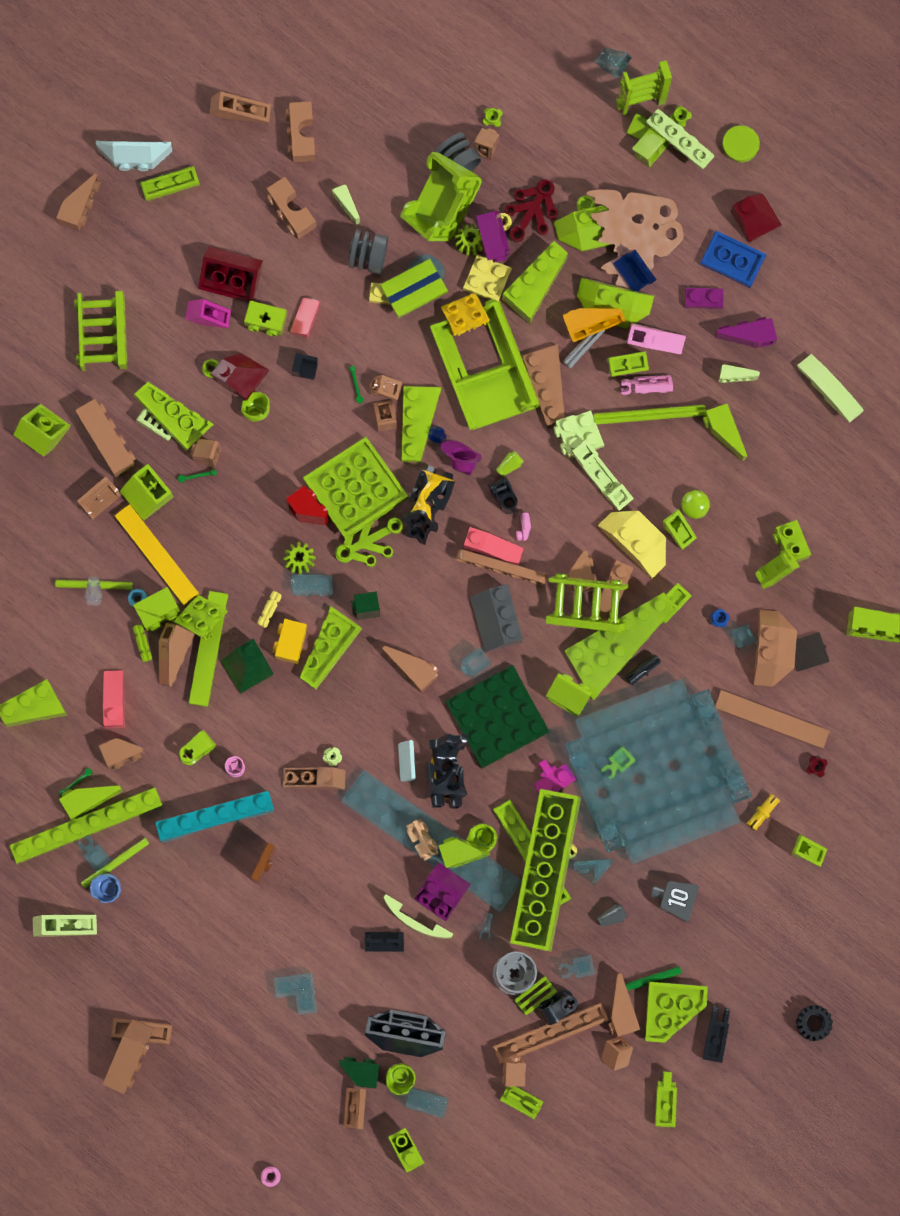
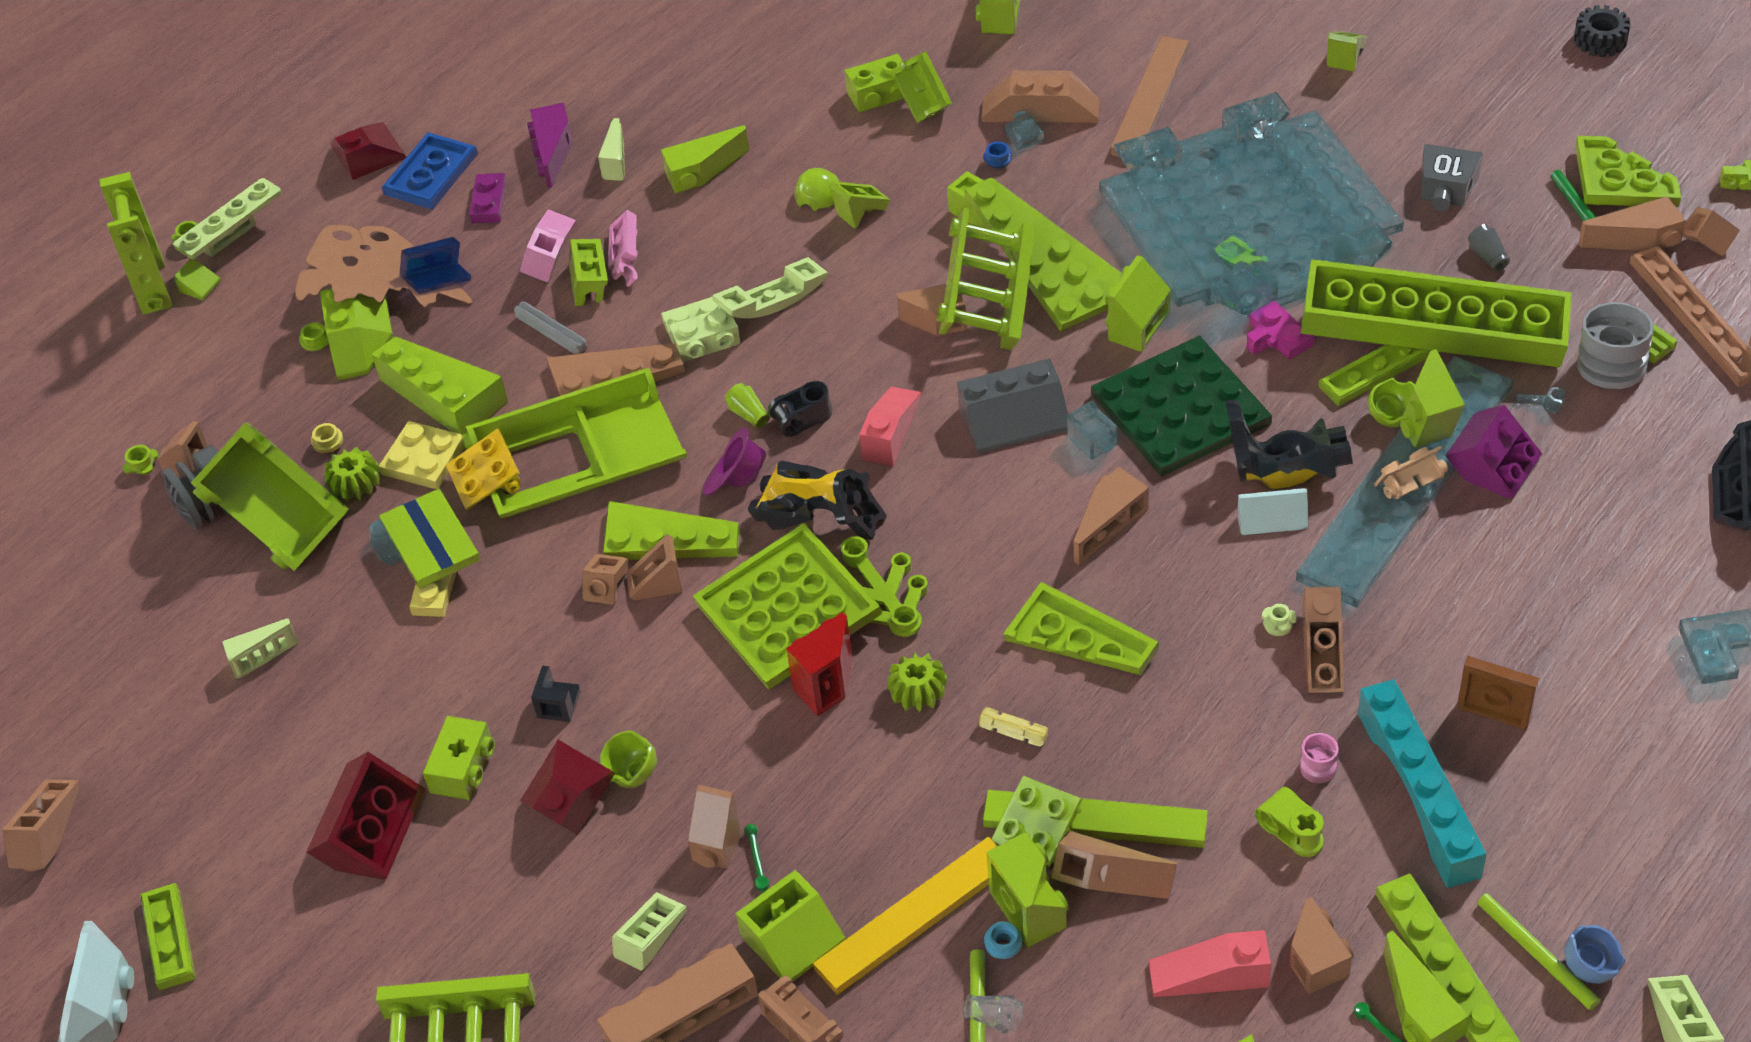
camera: 80 degrees left, 30 degrees down
(96, 855) = (1528, 984): clear light blue plate -> none
(142, 643) = (1091, 928): lime axle -> none
(178, 420) = (644, 887): lime wing -> none
(207, 313) = (438, 852): dark pink slope -> none
(208, 363) = (544, 835): lime plate -> none
(247, 666) = (1121, 753): dark green slope -> none
(290, 641) = (1072, 685): yellow brick -> none
(299, 221) = (231, 747): nougat arch -> none
(300, 116) = (136, 723): nougat arch -> none
(305, 317) = (463, 698): coral slope -> none
(311, 584) = (966, 662): clear light blue slope -> none
(359, 399) = (622, 619): green hinge -> none
(365, 605) = (1003, 568): dark green brick -> none
(368, 251) = (354, 600): dark grey wheel -> none
(384, 941) = (1597, 527): black hinge -> none
(437, 434) = (693, 502): clear blue plate -> none
(438, 931) = (1540, 510): yellowish green slope -> none
(493, 236) = (352, 422): magenta window -> none
(501, 567) = (925, 408): nougat beam -> none
(526, 527) = (859, 381): bright pink arm -> none
(533, 208) = (279, 387): dark red plant -> none
(556, 1008) = (1650, 295): black piece -> none
(581, 967) = (1584, 280): clear light blue plate -> none
(590, 321) = (512, 312): light orange slope -> none
(598, 866) = (1419, 259): clear light blue slope -> none
(601, 295) = (482, 298): lime wedge -> none
(613, 61) = (78, 310): clear light blue slope -> none
(619, 572) = (932, 266): nougat slope -> none
(637, 539) = (874, 252): light yellow wedge -> none
(643, 669) = (1086, 233): black axle -> none
(649, 414) = (671, 246): lime axle -> none
(650, 147) = (233, 262): lime hinge -> none
(716, 1036) = (1647, 127): black hinge -> none
(741, 144) = (246, 167): lime tile -> none
(763, 812) = (1294, 96): yellow pin -> none
(810, 652) = (1041, 59): clear smoke piece -> none
(822, 763) = (1216, 47): dark red plate -> none
(830, 388) = (636, 58): yellowish green slope -> none

